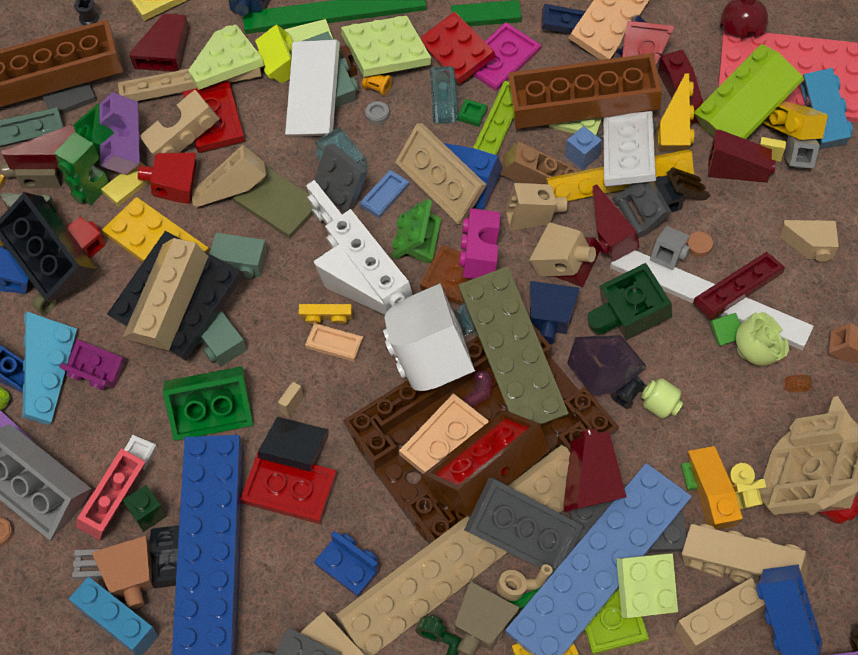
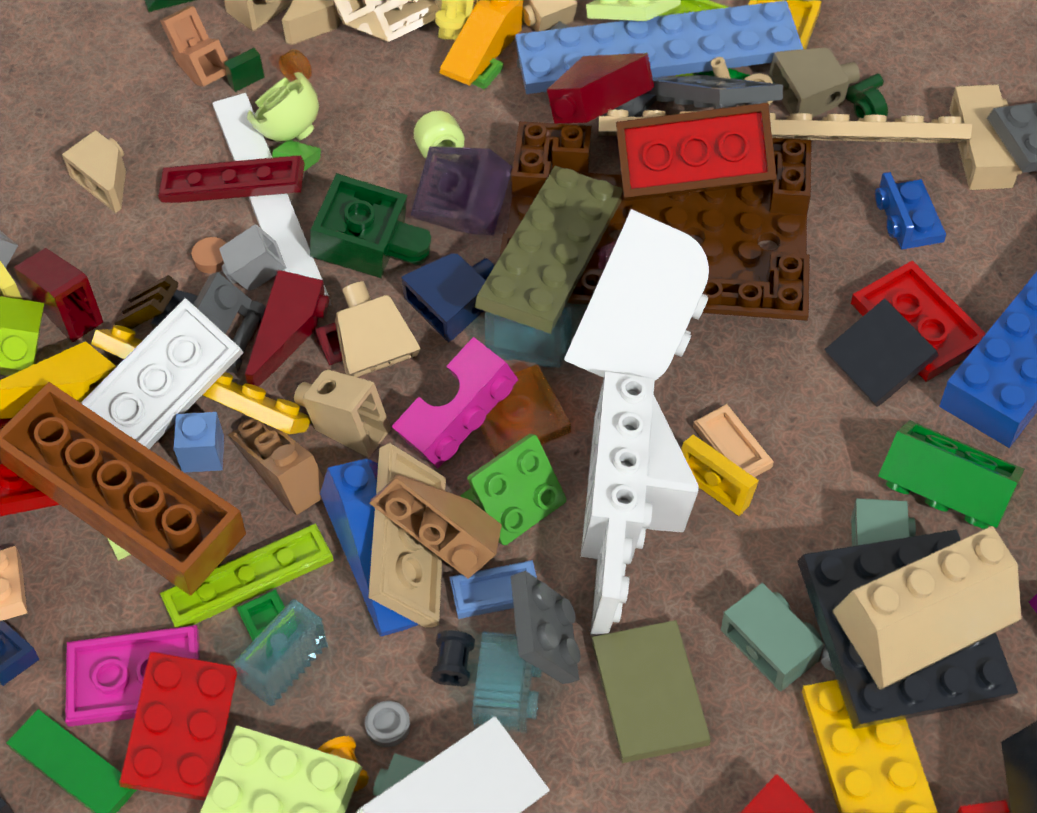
camera: 140 degrees left, 5 degrees down
(231, 178) = (700, 753): tan slope -> none
(290, 399) = (845, 403): tan tile -> none
(372, 149) = (453, 658): none -> black bush
(422, 181) = (441, 522): none -> medium nougat slope
(442, 434) = (721, 221): light nougat plate -> none
(822, 357) = (244, 69): none -> dark green tile

